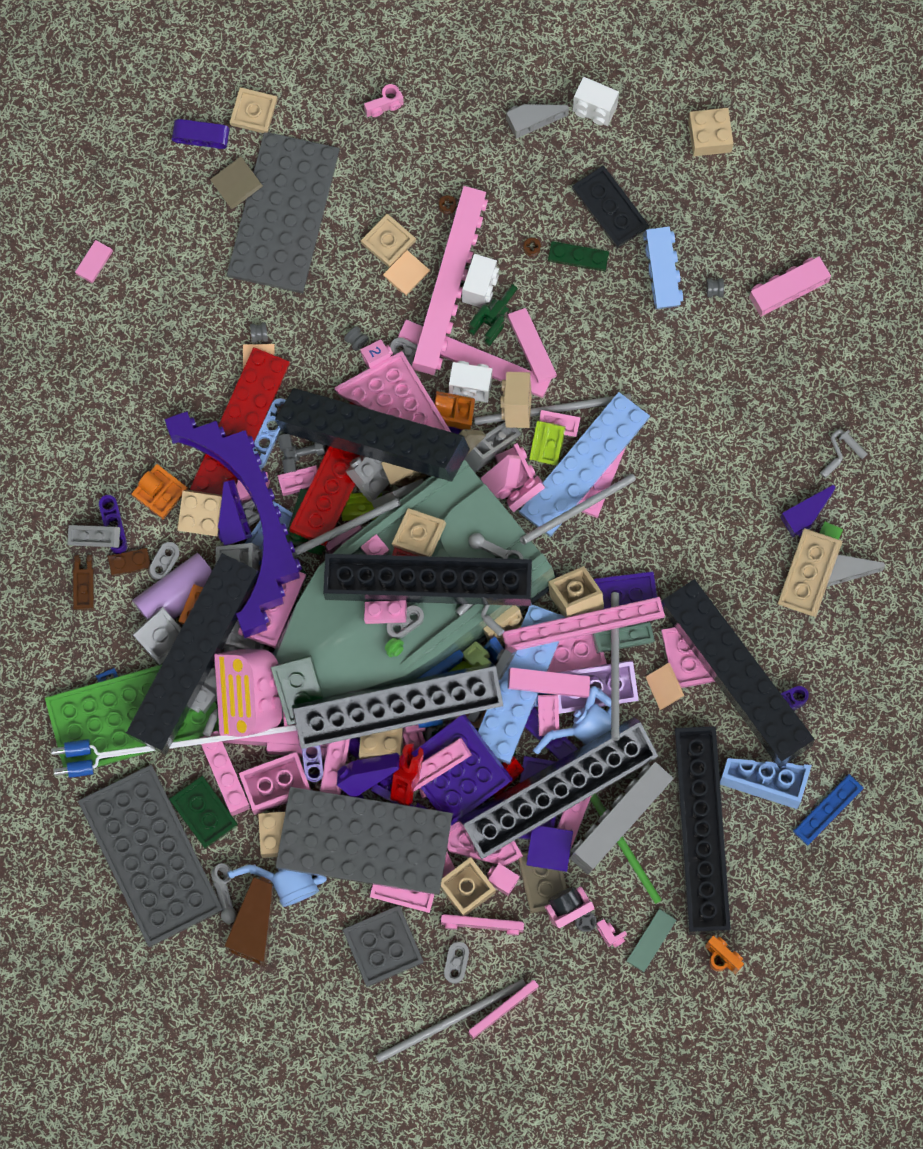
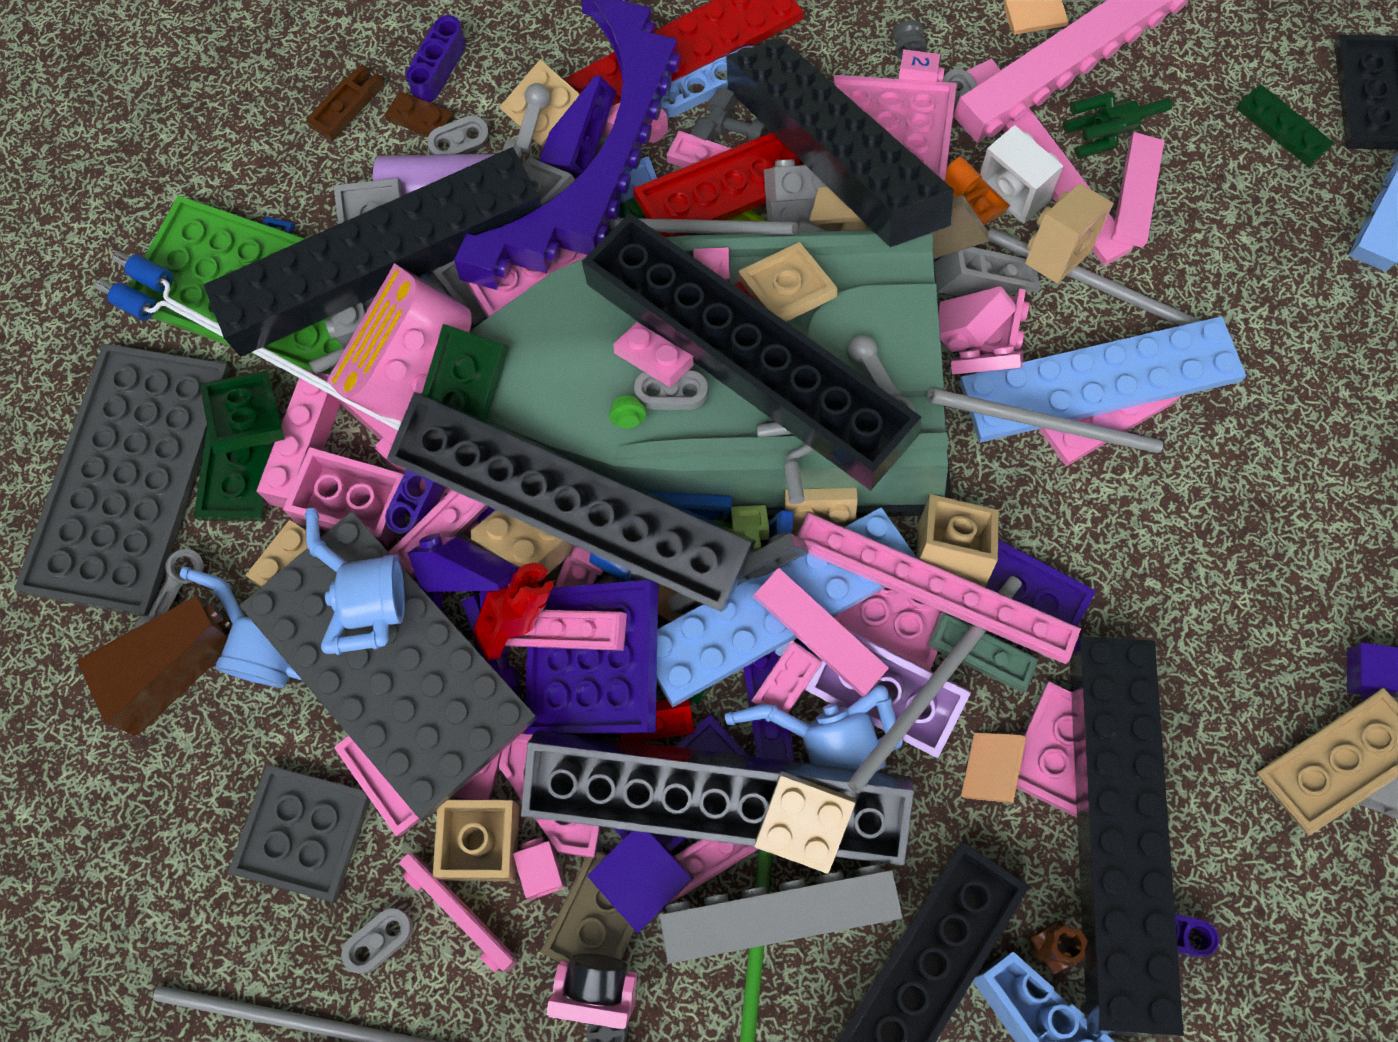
camera: 45 degrees right, 5 degrees down
(93, 536) = (398, 50): light grey plate -> none
(159, 491) = (519, 52): orange plate -> none
(188, 780) = (241, 412): none -> dark green plate
(209, 553) = (537, 98): none -> light grey piece
(335, 817) = (361, 596): none -> light blue piece
(479, 281) = (1127, 61): white brick -> none
(536, 242) = (1233, 82): reddish brown bush -> none
(547, 442) = (1069, 318): lime plate -> none
(569, 421) = (1103, 306): bright pink plate -> none
(605, 769) = (805, 822): none -> plate
(743, 742) = (1058, 946): none -> reddish brown piece

